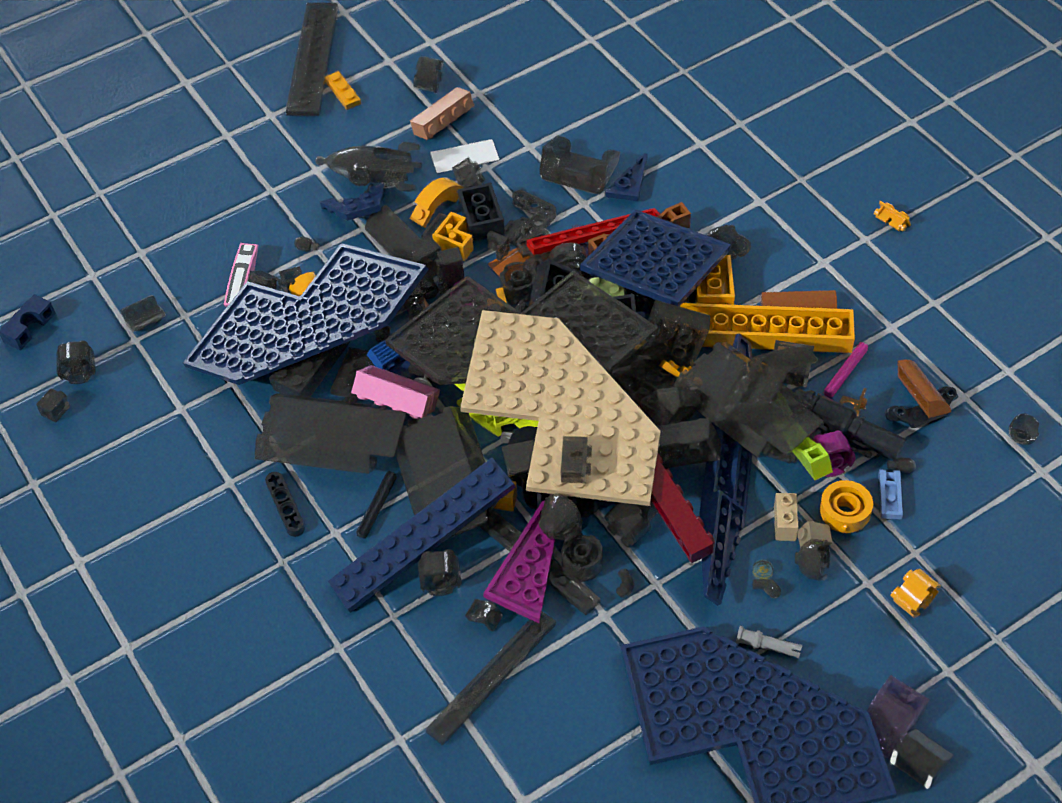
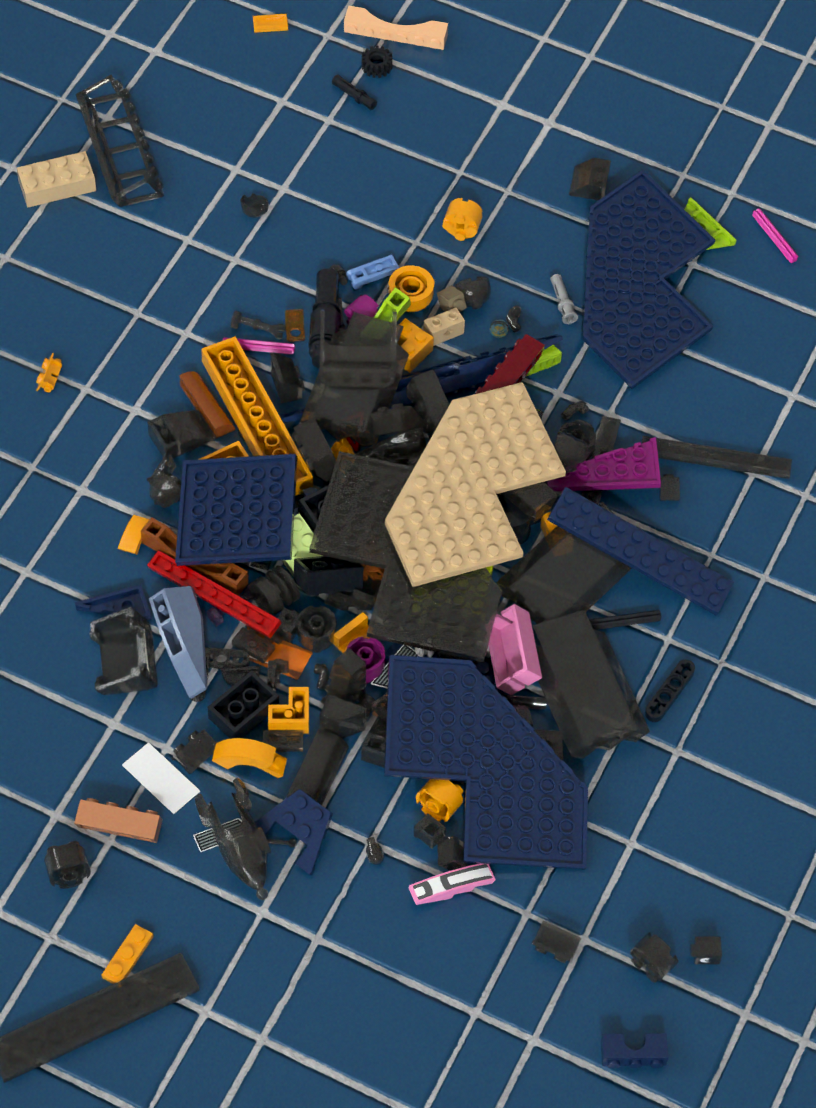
camera: 125 degrees left, 5 degrees up
(439, 572) = (662, 525): clear smoke brick -> none
(482, 278) = (323, 677): none -> clear smoke arm
(571, 195) = (183, 635): none -> sand blue wedge
(574, 459) = (526, 437): clear smoke brick -> none
(697, 584) = (550, 357): none -> lime slope
(698, 215) = (131, 537): none -> light orange slope
(773, 480) = (415, 343): none -> light orange brick
(774, 269) = (179, 432): none -> clear smoke slope
(884, 363) = (237, 318): none -> clear smoke piece
(895, 713) = (571, 202): clear purple slope -> none
(915, 415) = (271, 273): black plate -> none
(922, 389) = (258, 277): dark orange brick -> none

